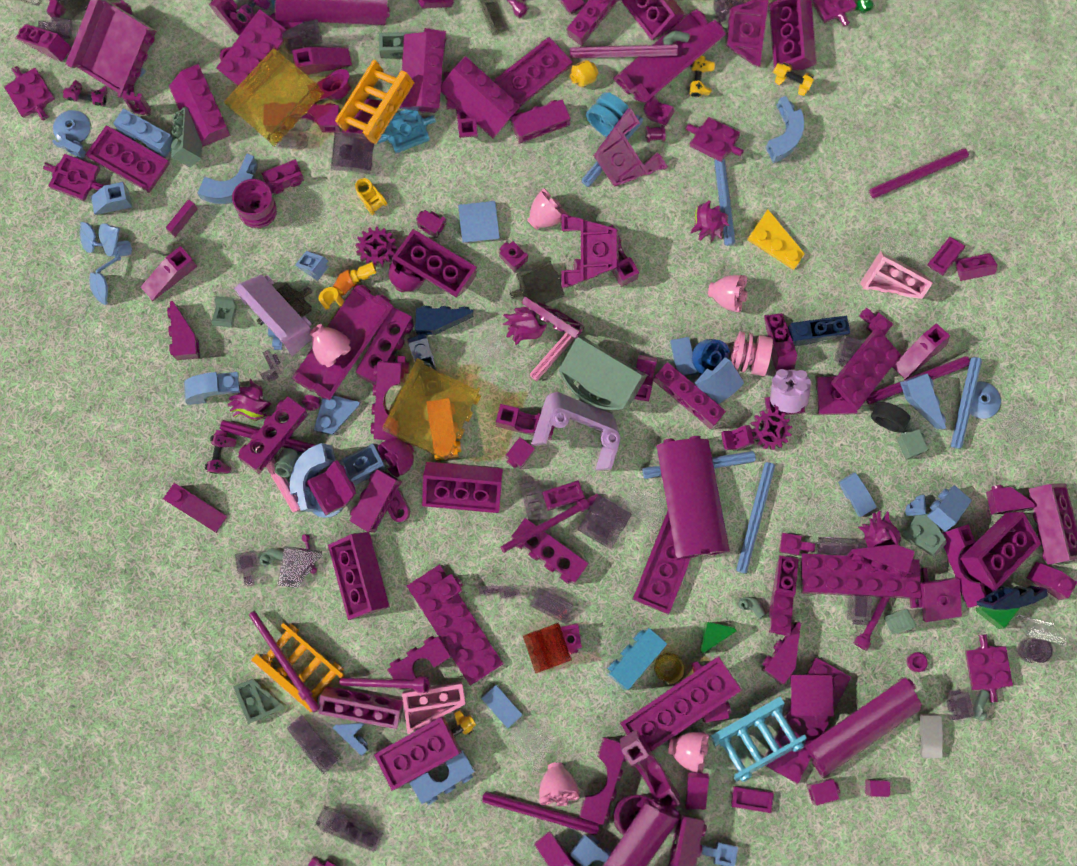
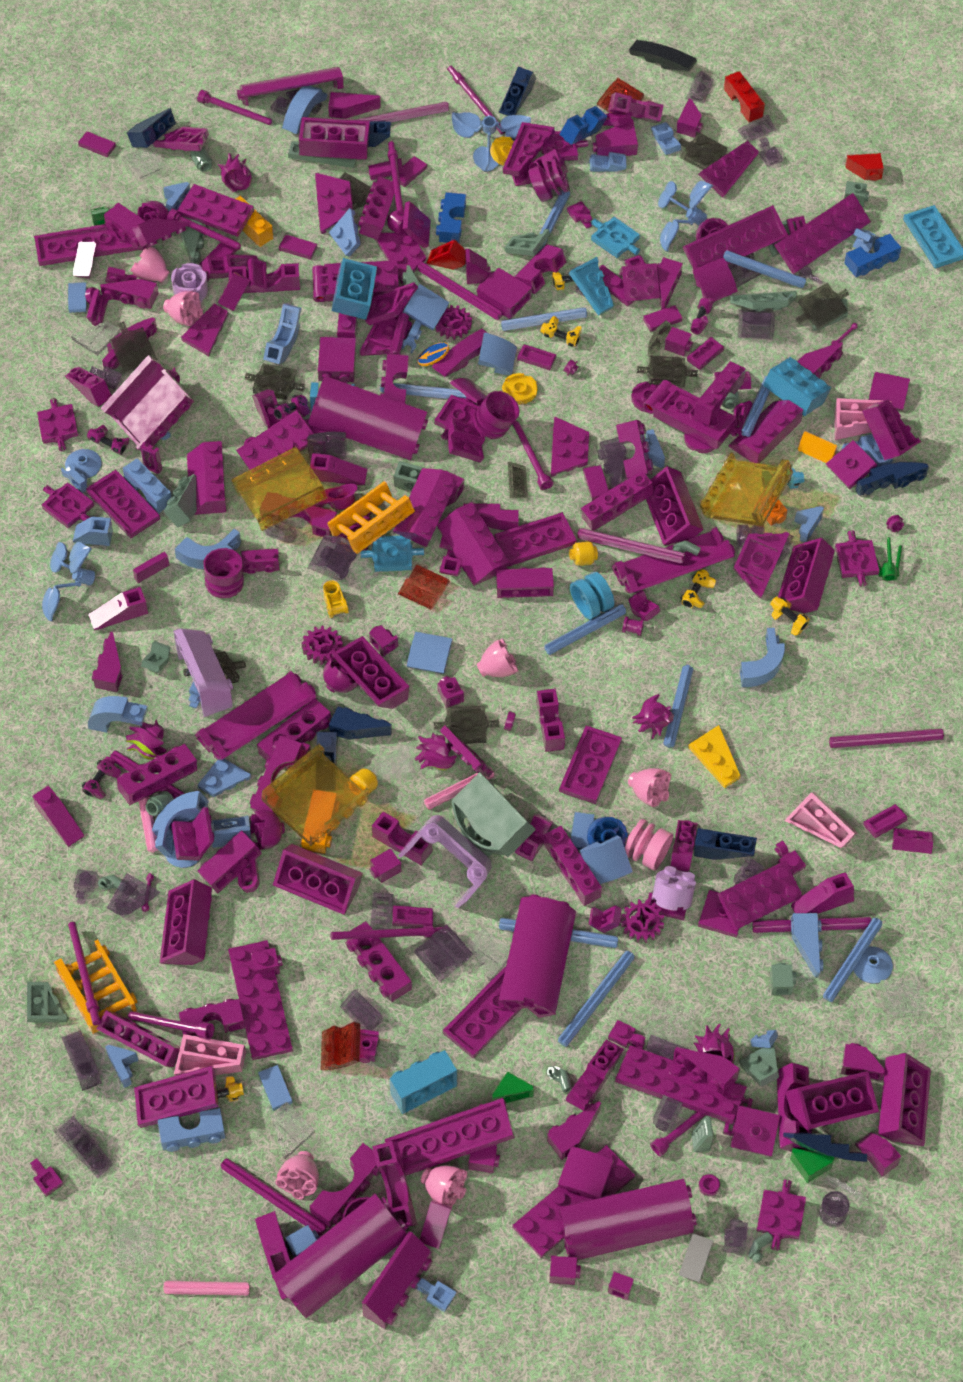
camera: 25 degrees right, 20 degrees down
(273, 361) = (180, 723): bracket -> none
(311, 402) = (204, 760): magenta plate -> none
(313, 264) = (256, 643): medium blue slope -> none
(328, 344) = (241, 709): bright pink piece -> none
(344, 283) = (278, 667): yellow piece -> none
(447, 155) = (423, 587): none -> clear red slope
(468, 374) = (365, 779): none -> yellow head
(488, 61) = (497, 518): none -> magenta slope
(505, 592) = (321, 984): slope -> none
(598, 250) = (530, 706): magenta wing -> none
(619, 158) = (587, 636): magenta wing -> none
(667, 287) = (590, 764): none -> magenta plate
(670, 662) = (455, 1100): clear yellow hair -> none
(715, 139) = (689, 647): magenta plate -> none
(752, 799) = (489, 1256): magenta tile -> none
(758, 719) = (512, 1180): medium azure fence -> none
(857, 494) = (707, 1008): medium blue slope -> none
(890, 417) = (767, 945): black tyre -> none
(949, 507) = (795, 1046): medium blue brick -> none

